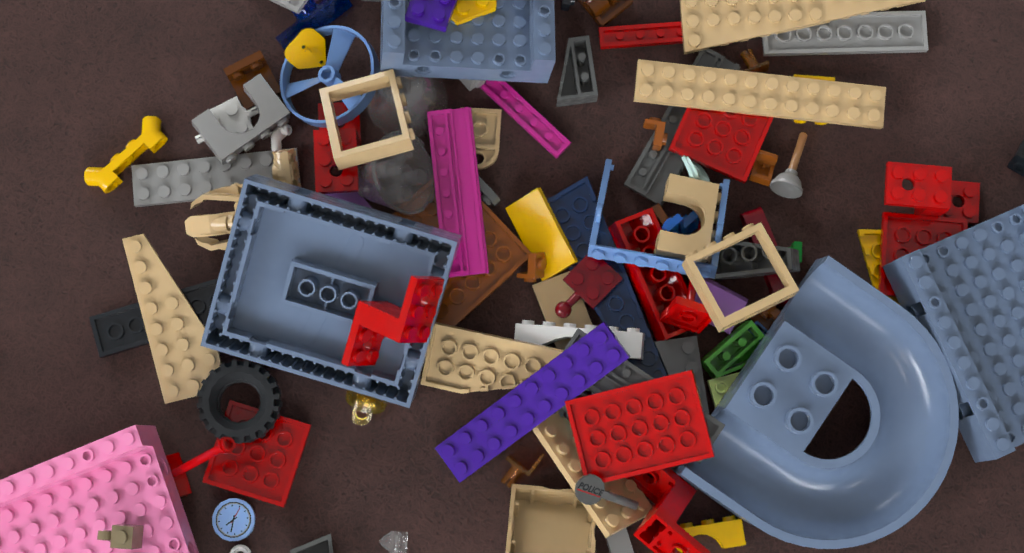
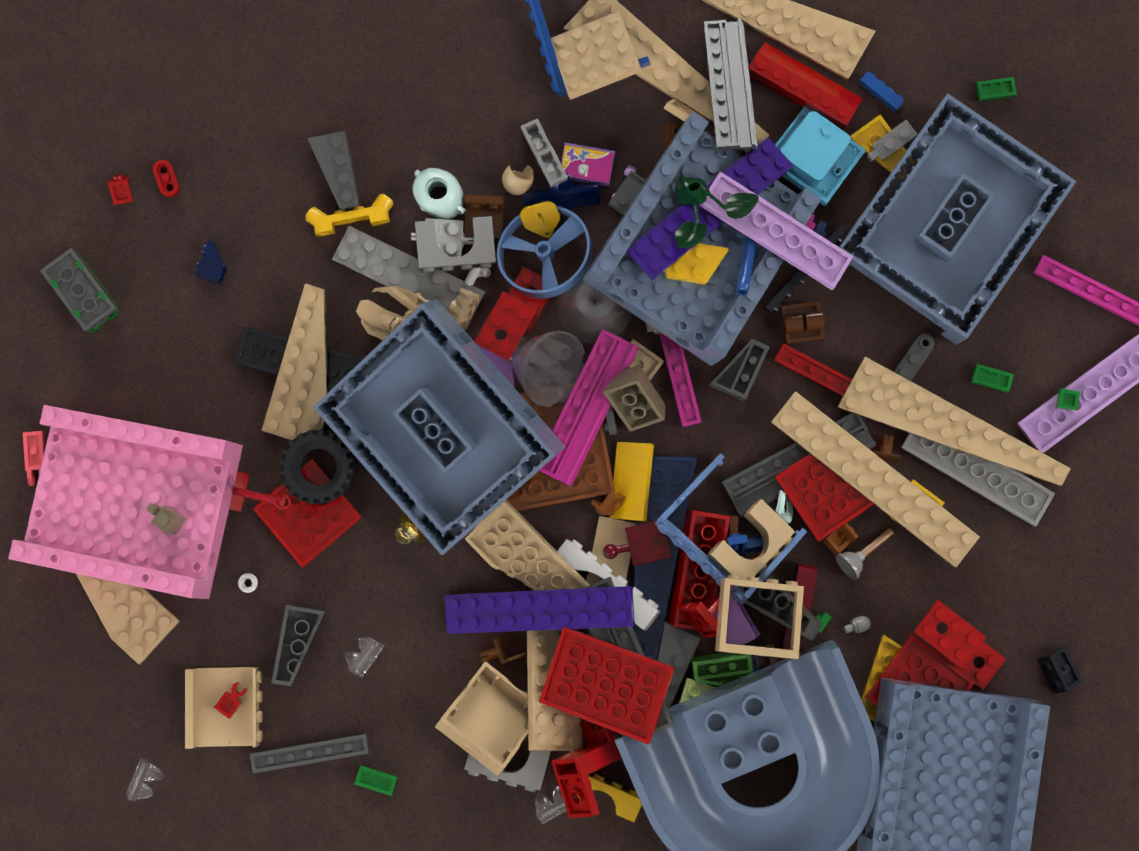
camera: 35 degrees right, 5 degrees up
(22, 280) = (212, 266): none -> clear blue slope
(81, 114) = (337, 165): none -> dark grey wedge
(209, 95) = (442, 208): none -> light aqua piece
(233, 519) = (259, 552): light blue tile -> none
(266, 31) = (517, 182): none -> tan hair
(374, 150) = (537, 341): tan window -> none
(382, 318) = (468, 485): red bracket -> none
(497, 156) = (635, 399): none -> dark tan slope
(591, 489) = (540, 707): dark grey piece -> none
(660, 137) = (773, 464): dark orange bracket -> none
(829, 236) = (858, 625): none -> light grey cylinder

